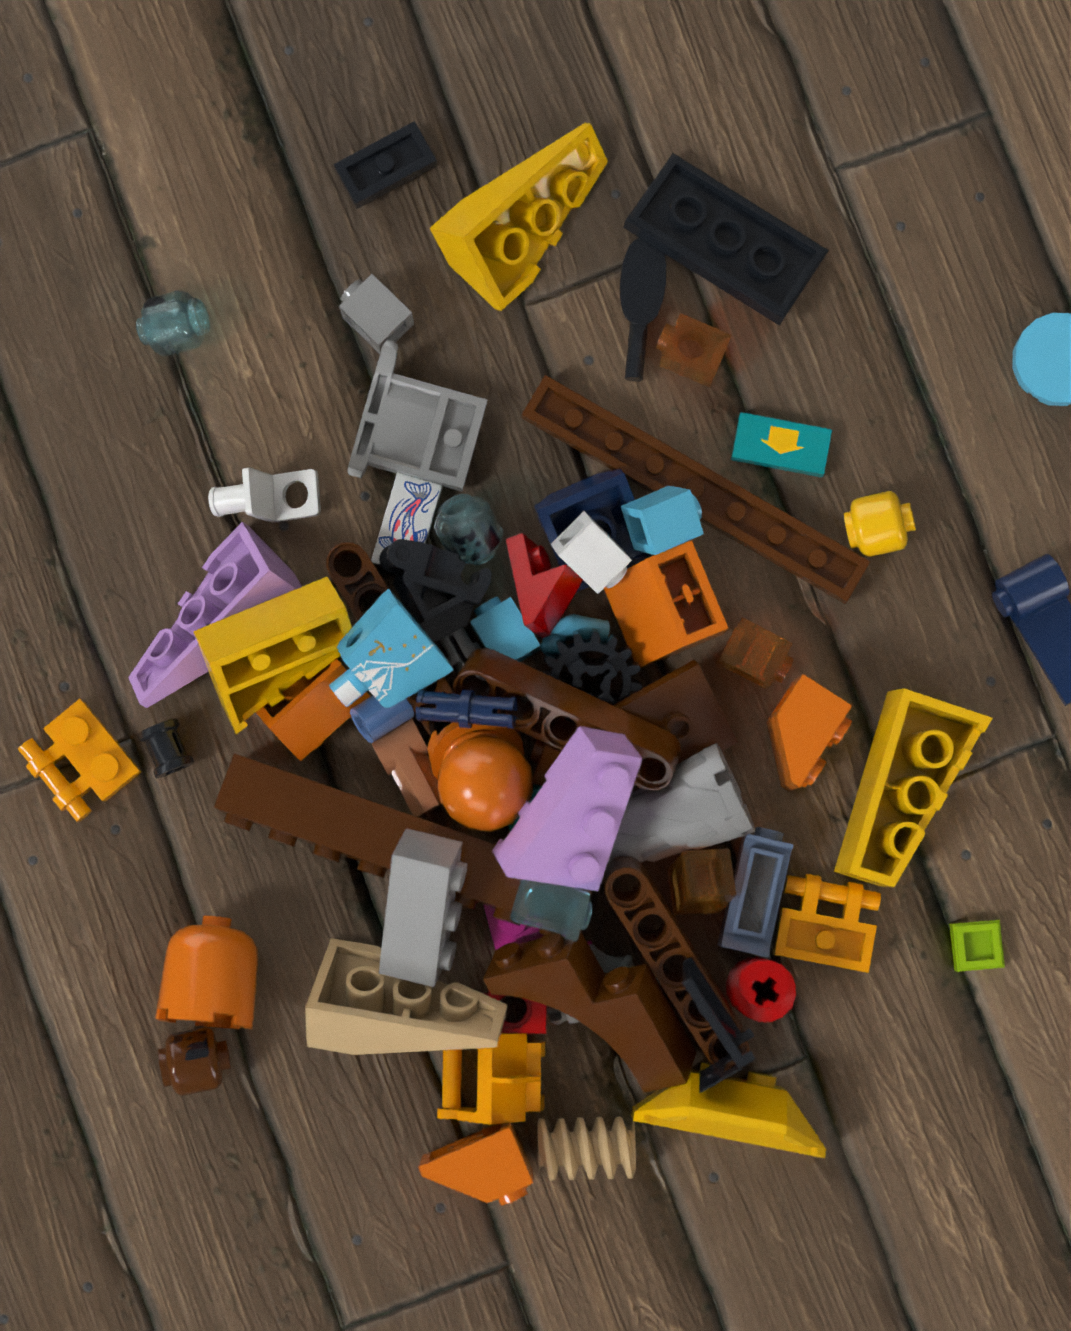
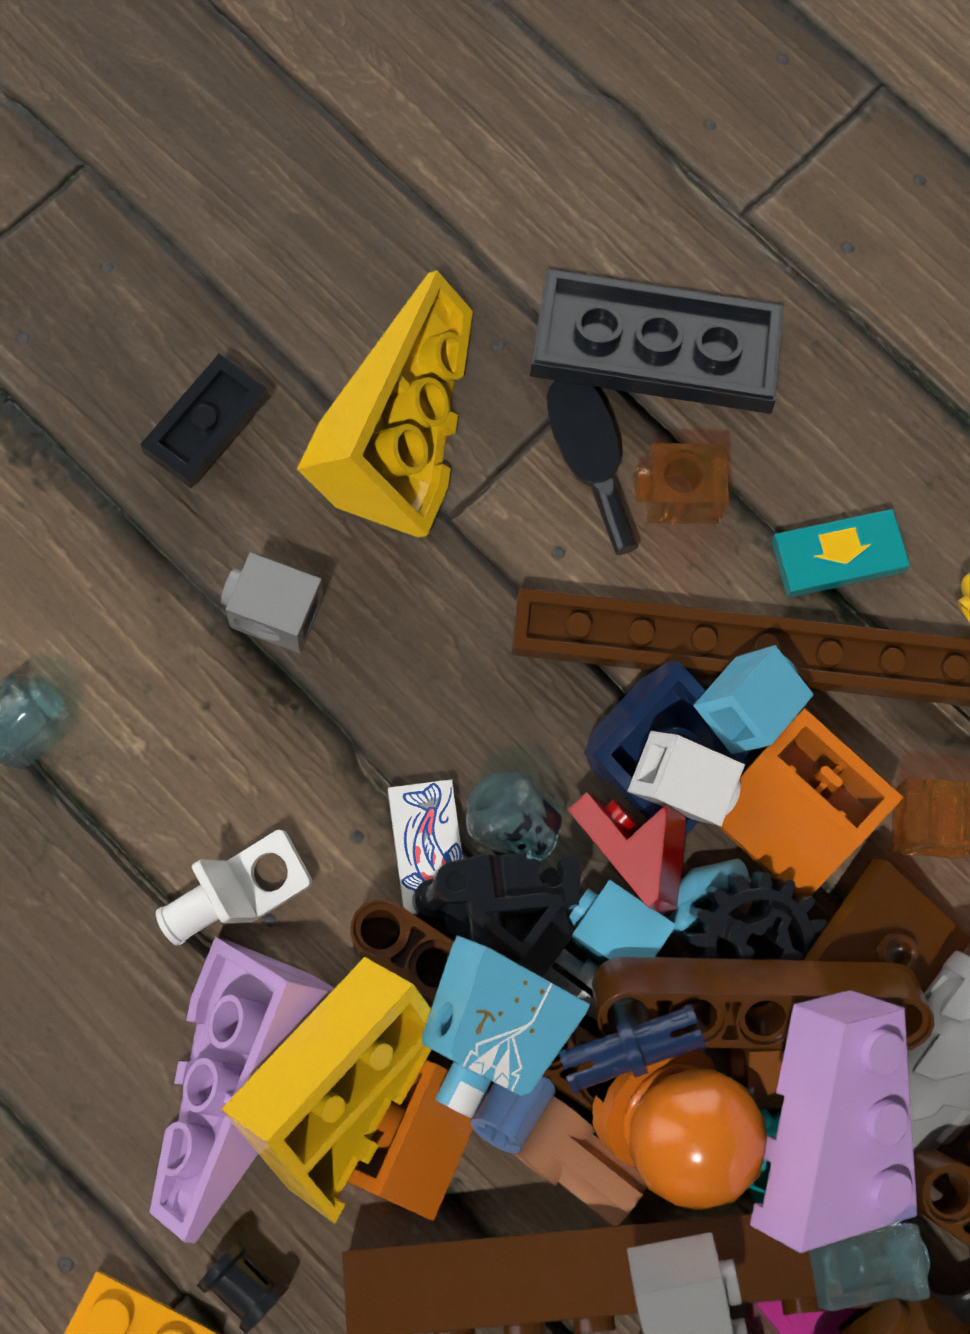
camera: 30 degrees left, 10 degrees down
(416, 427) = (387, 720): light grey piece -> none

